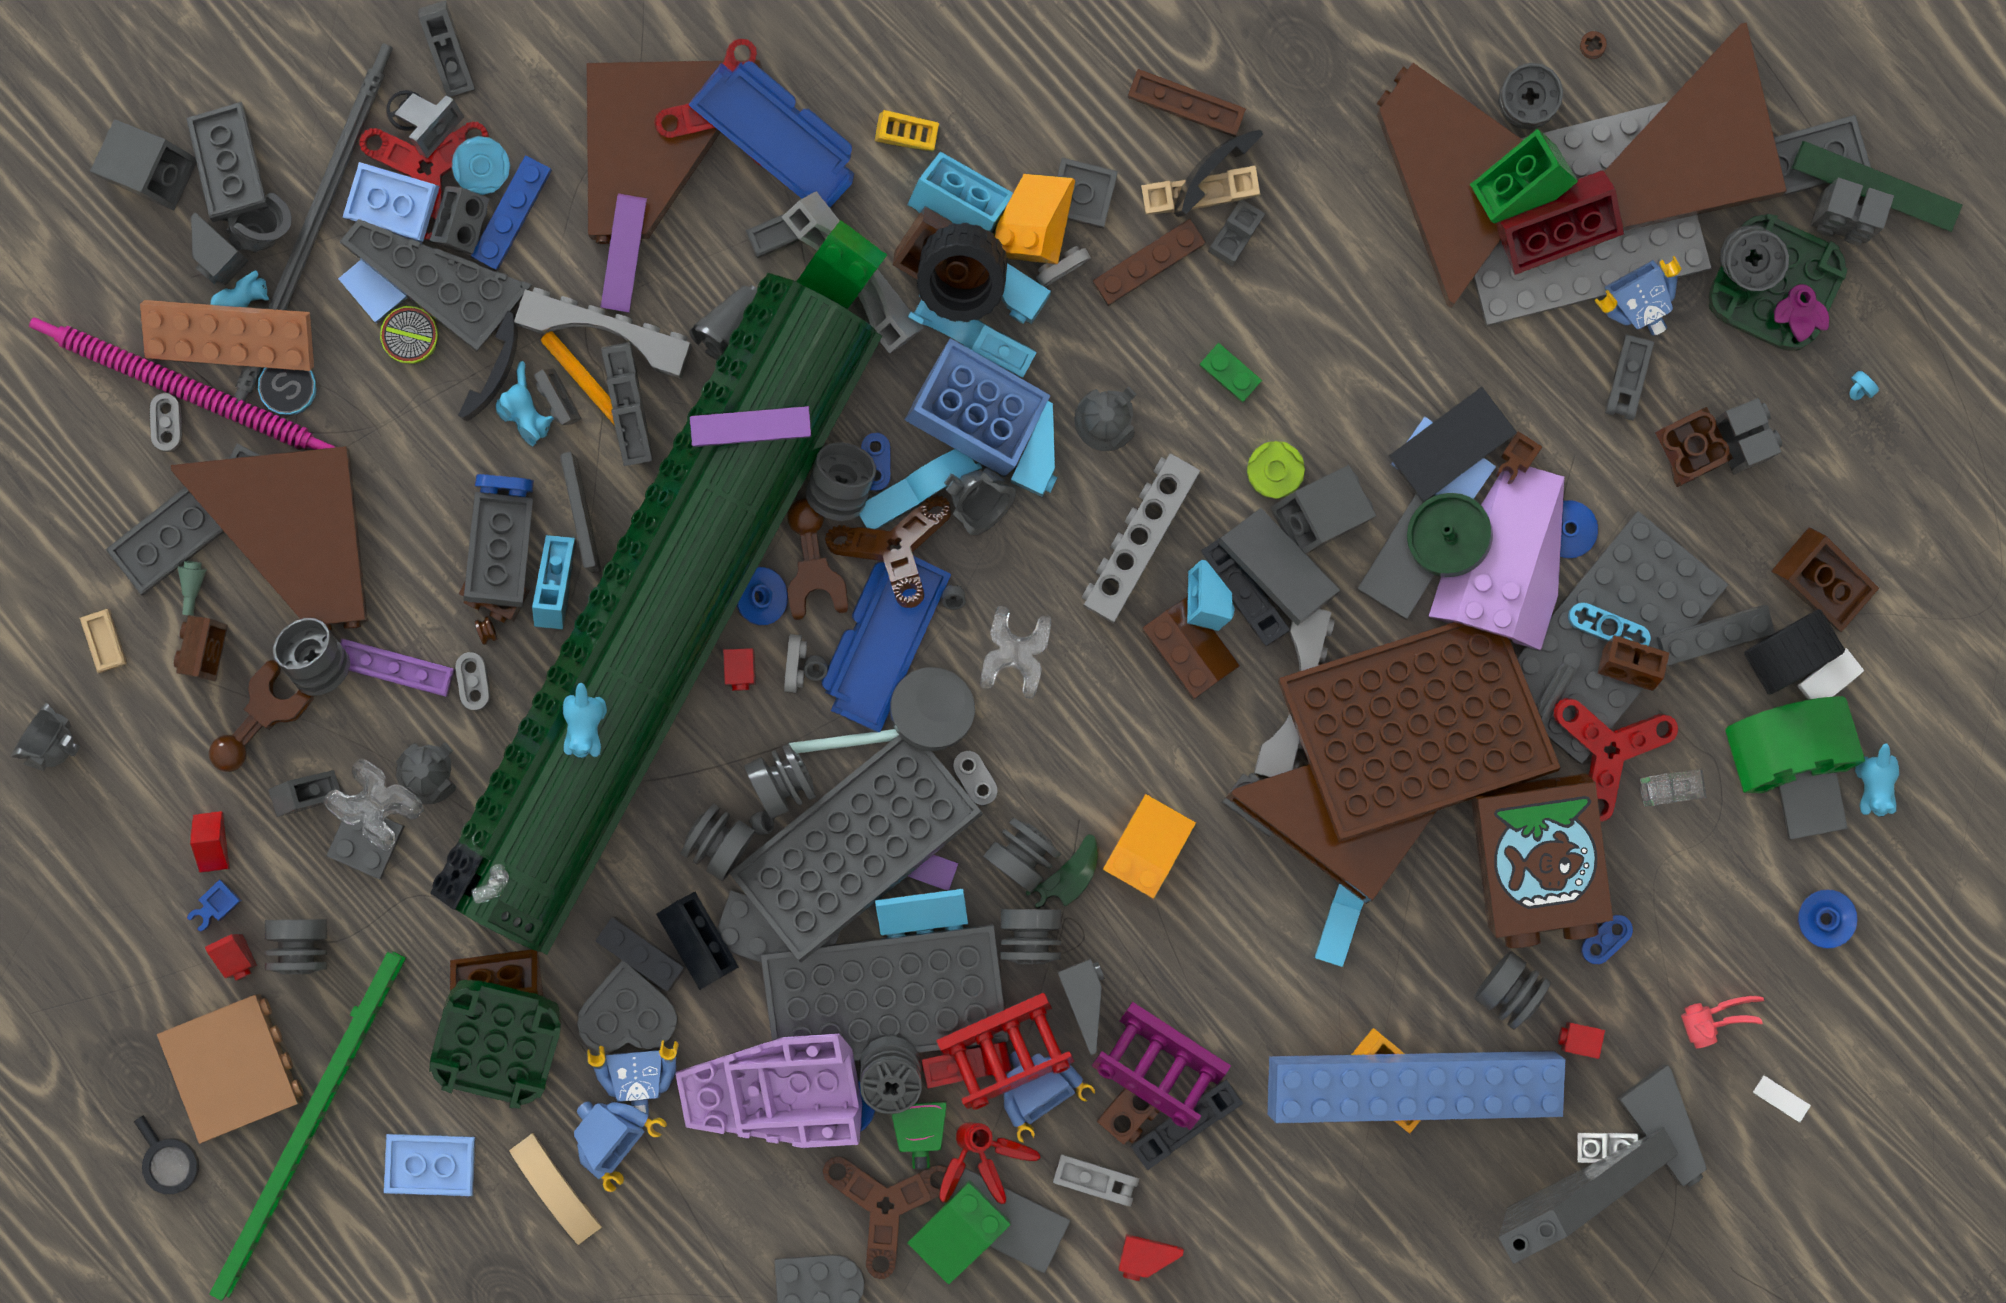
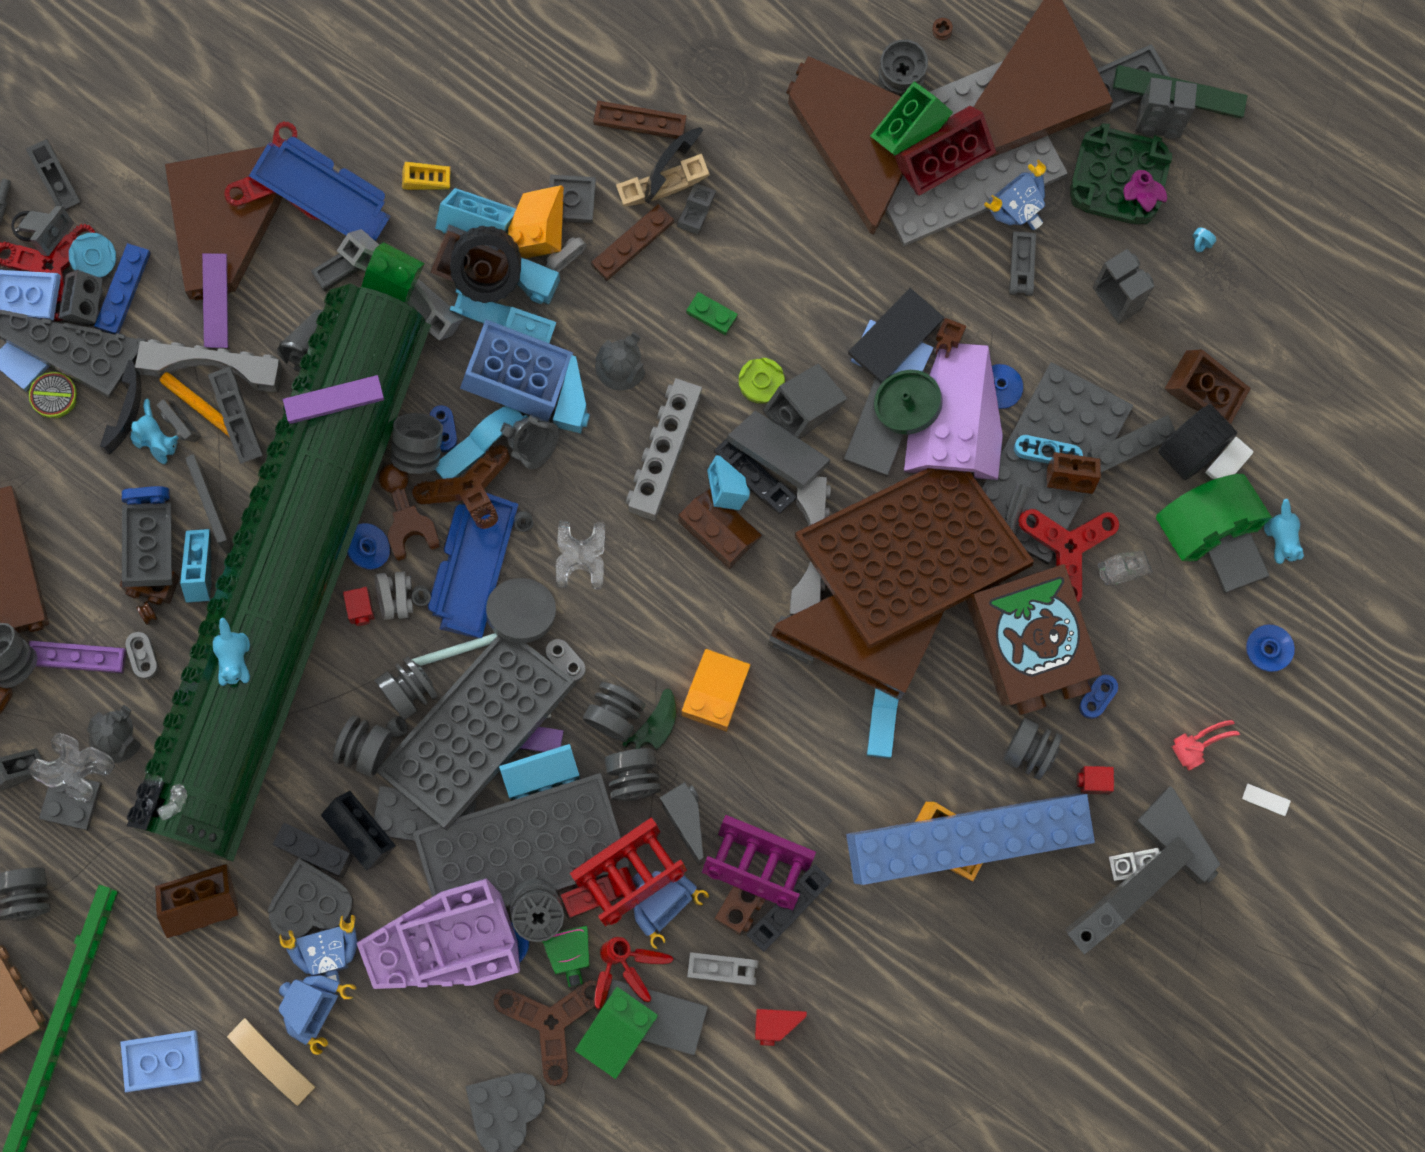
camera: 20 degrees left, 10 degrees down
(495, 1042) = (200, 943): dark green plate -> none
(773, 672) = (383, 587): none -> light grey plate
(1693, 446) = (1084, 304): reddish brown piece -> none
(1766, 268) = (1106, 142): dark grey wheel -> none

